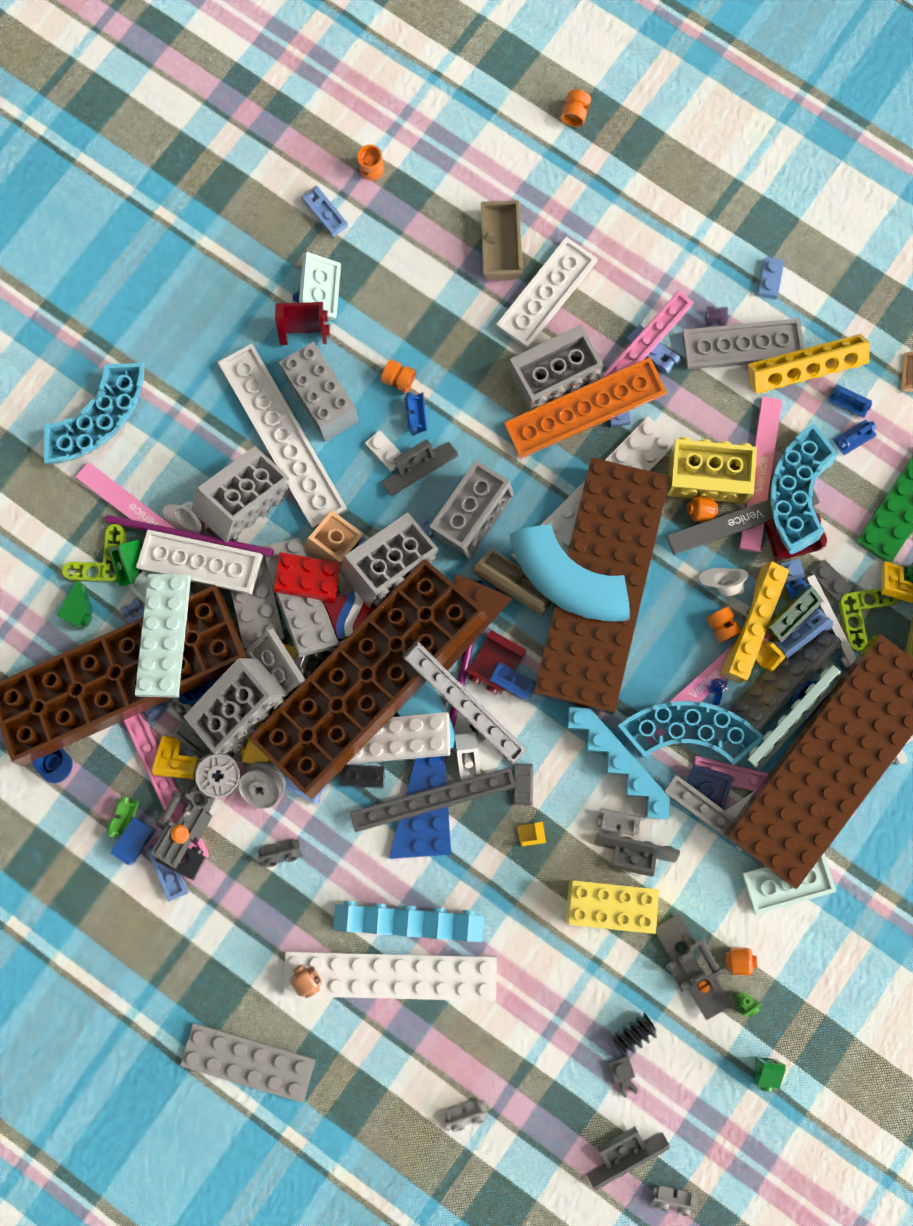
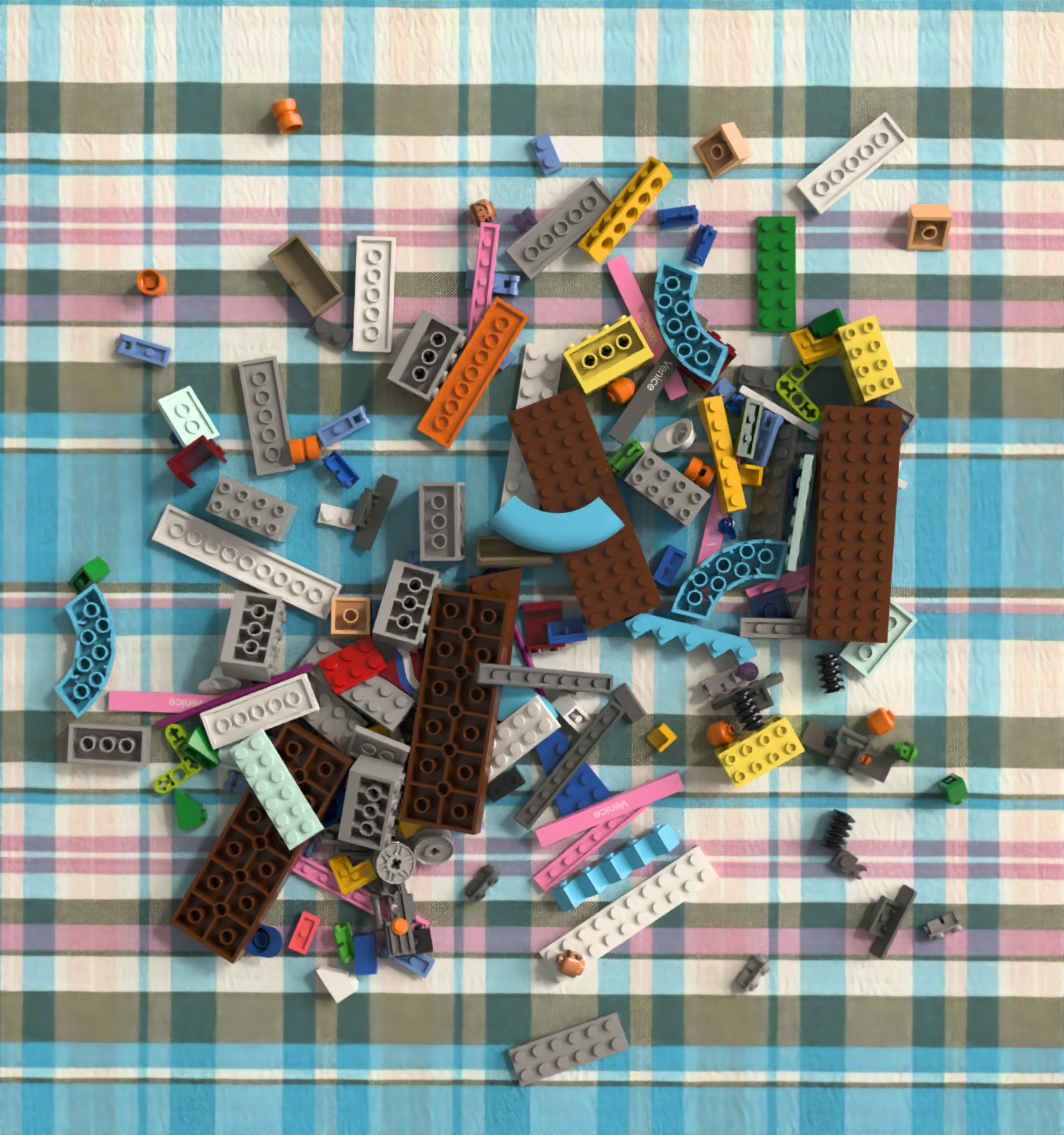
camera: 40 degrees left, 10 degrees up
(54, 503) = (109, 743): none -> light grey brick
(90, 849) = (338, 981): none -> white slope
(94, 784) = (304, 932): none -> coral plate
(147, 352) = (89, 573): none -> green slope
(386, 328) = (266, 415): none -> light grey plate
(412, 883) = (582, 849): none -> bright pink tile
(440, 865) = (609, 808): none -> bright pink tile
(444, 380) = (343, 426): none -> medium blue plate
(487, 300) = (330, 333): none -> dark grey plate
(587, 868) = (721, 733): none -> orange head
(625, 861) = (747, 710): none -> black piece
(642, 688) = (669, 566): none -> blue hinge
(650, 832) = (744, 671): none -> clear purple wheel
(668, 568) = (625, 457): none -> bright green hinge
(684, 283) = (481, 212): none -> nougat head
(686, 615) = (666, 488): none -> light grey brick
(724, 882) = (830, 673): none -> black piece

